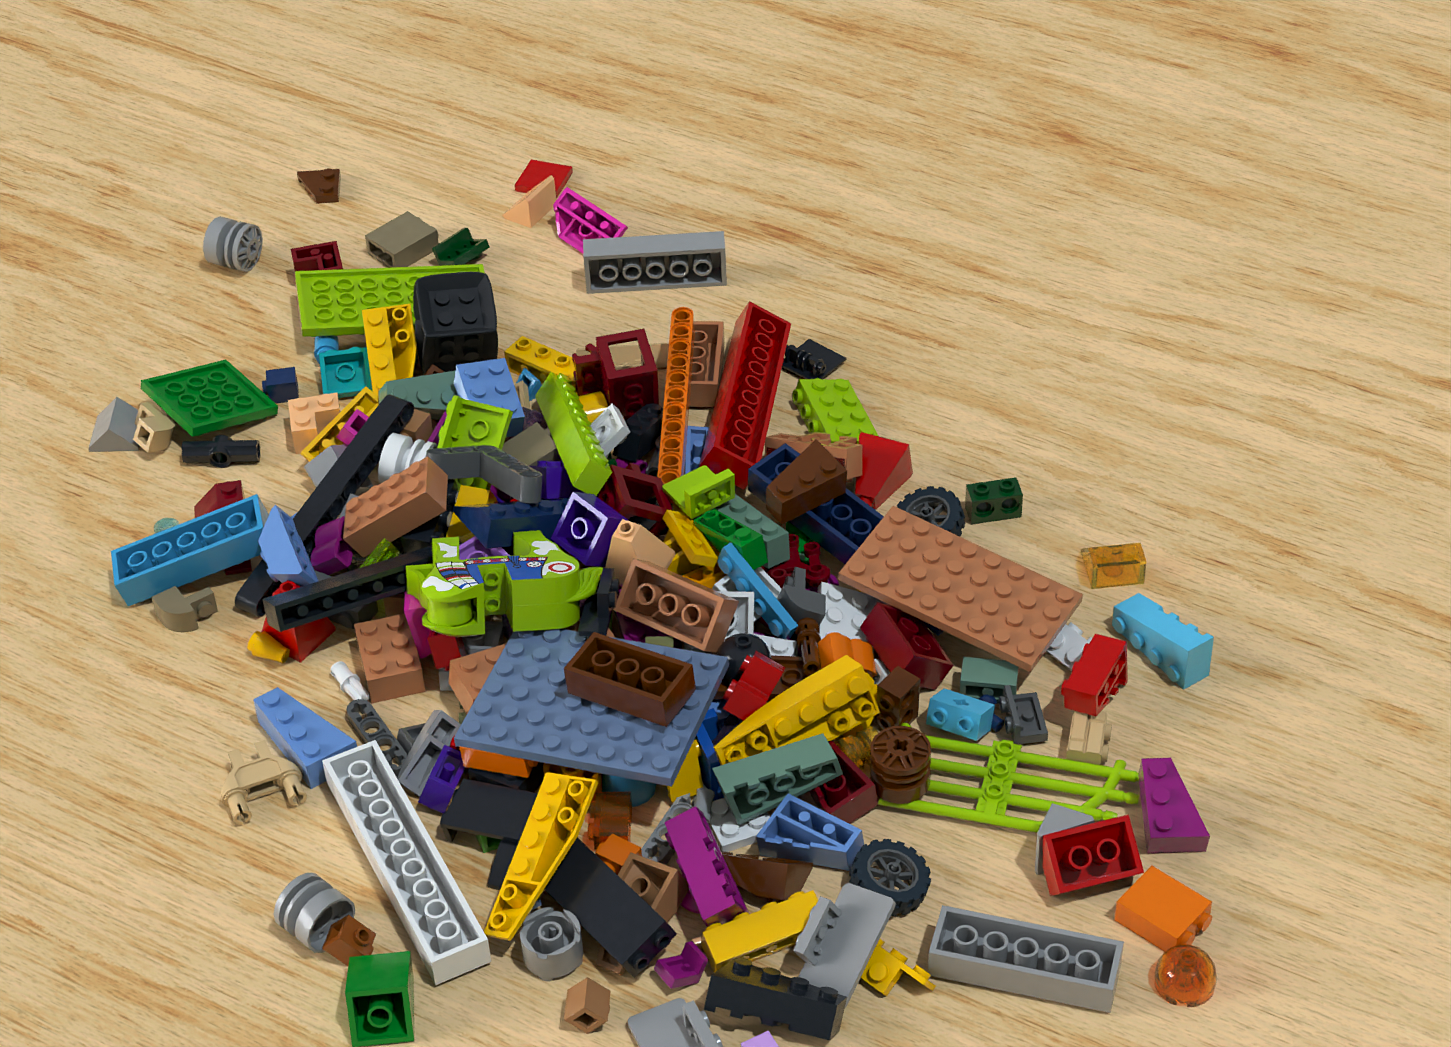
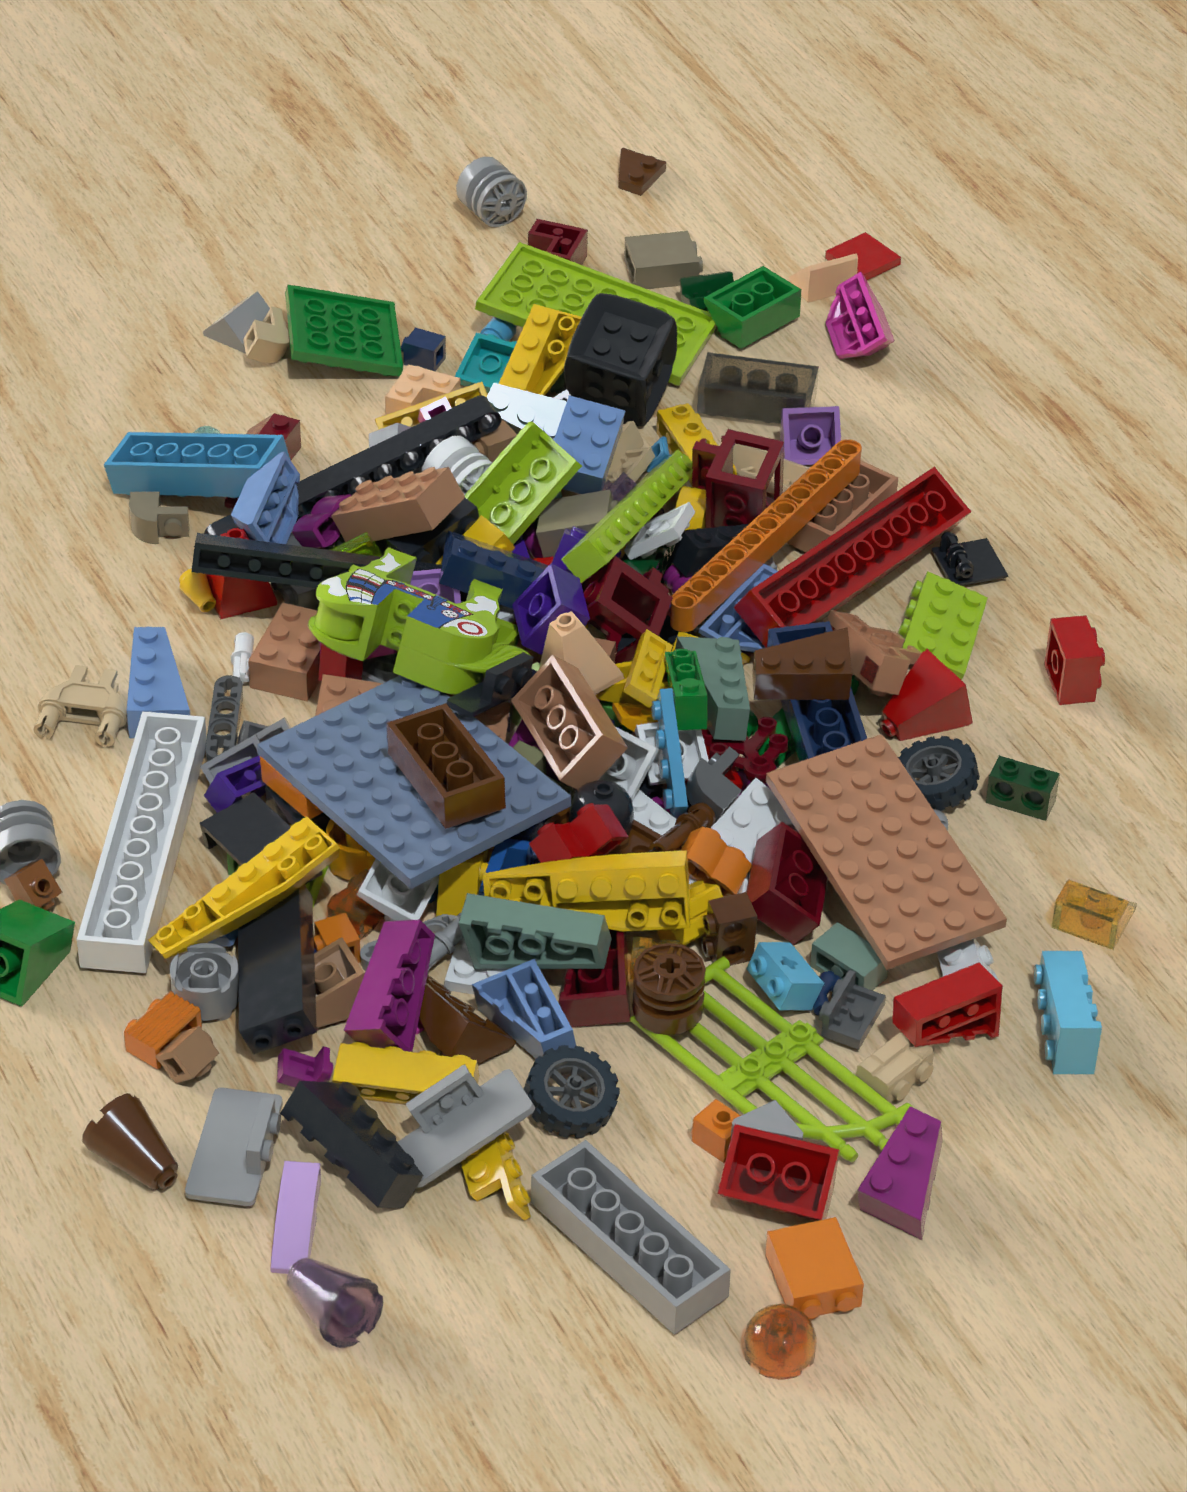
camera: 30 degrees right, 0 degrees up
(221, 451) = (315, 387): black piece -> none
(493, 466) = (506, 497): dark grey beam -> none
(504, 245) = (753, 306): none -> green slope
(546, 997) = (160, 1026): none -> orange brick
(561, 304) = (754, 387): none -> clear smoke brick
(627, 315) = (809, 432): none -> medium lavender slope
(644, 800) = (393, 897): none -> white slope
(655, 262) = (892, 389): light grey brick -> none
(701, 490) = (697, 627): lime bracket -> none
(951, 395) = (1074, 660): none -> red brick
(1014, 849) = (713, 1129): none -> orange brick

